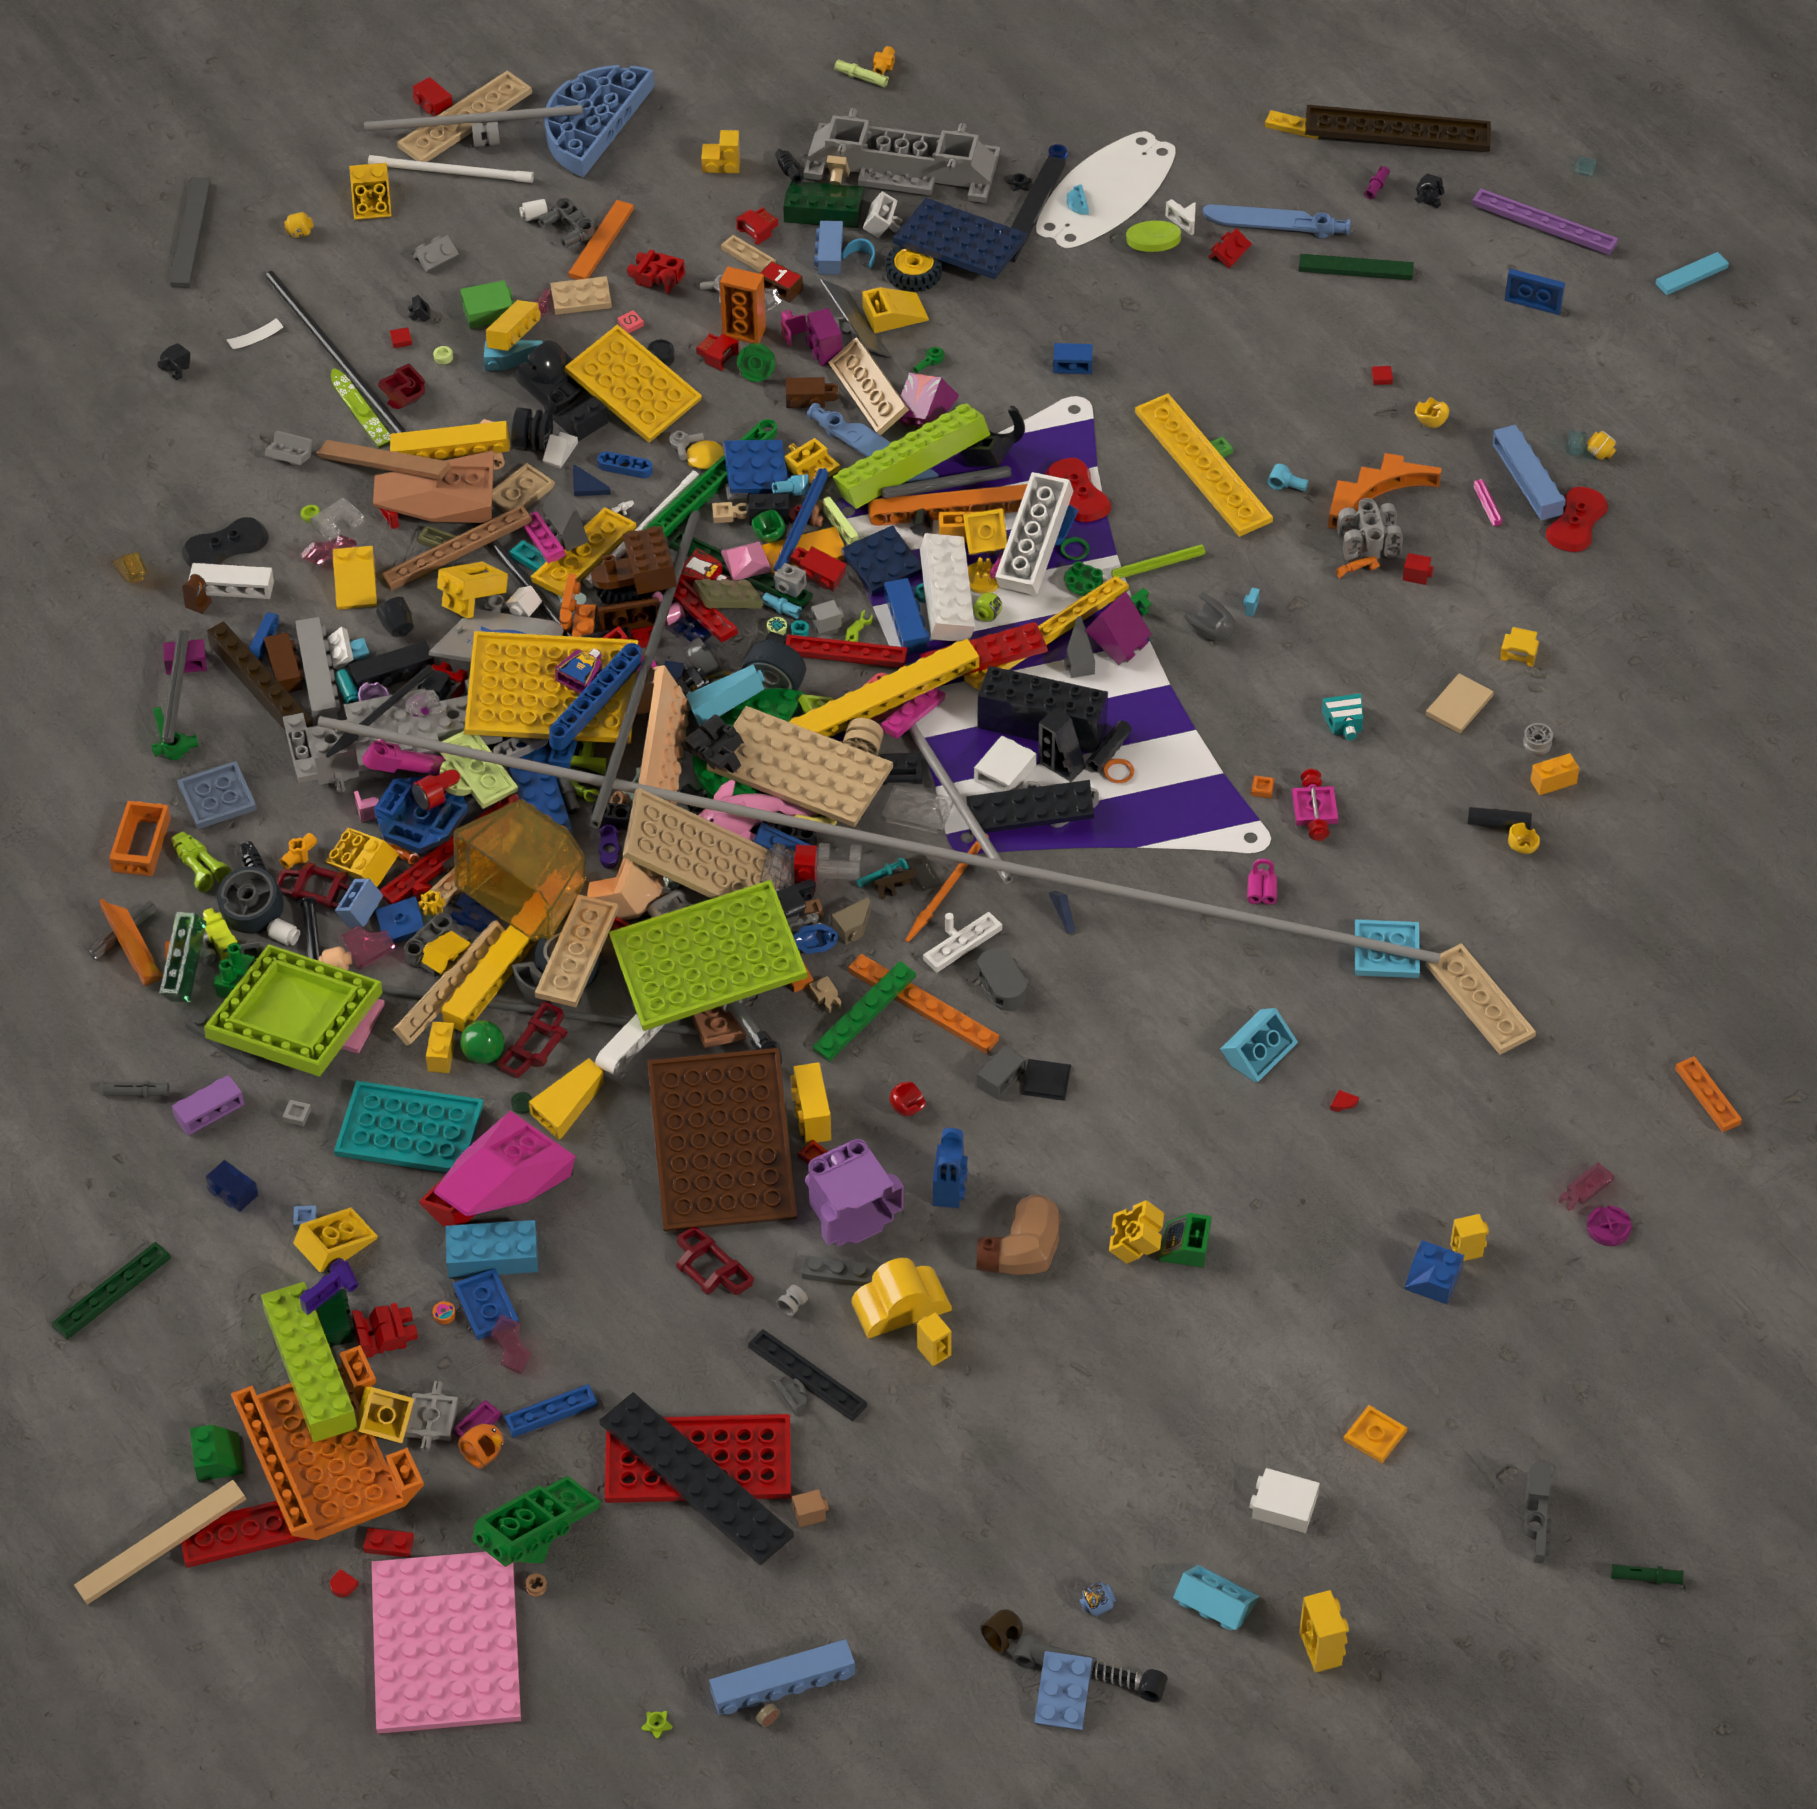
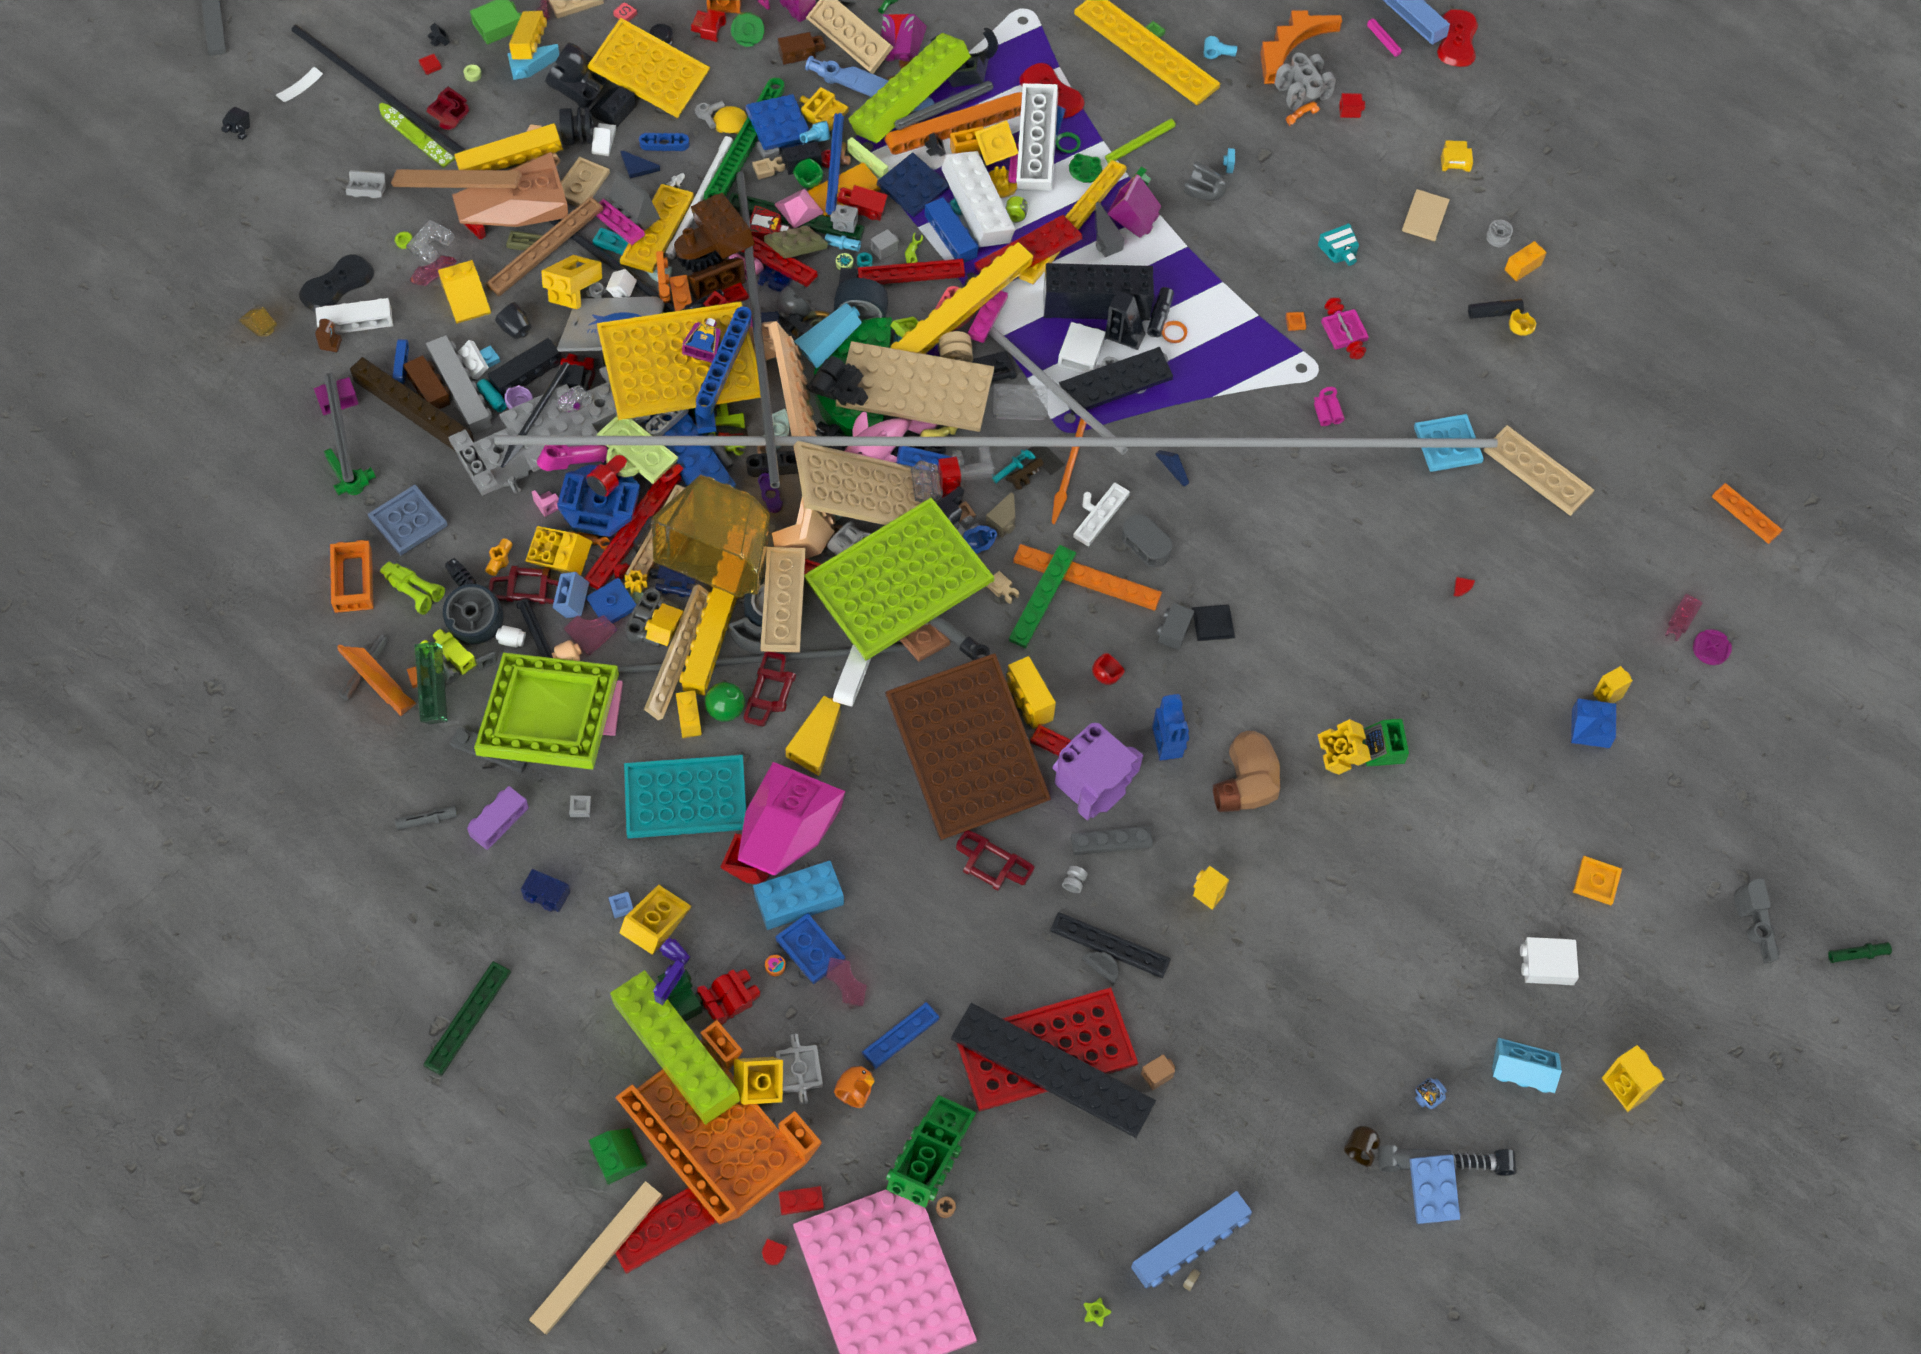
camera: 20 degrees left, 10 degrees up
(232, 970) = (480, 686): green brick -> none
(482, 1414) = (840, 1061): magenta tile -> none
(520, 1102) = (775, 749): clear green tile -> none
(899, 1297) = (1165, 856): yellow brick -> none
(1259, 1044) = (1378, 551): medium azure slope -> none

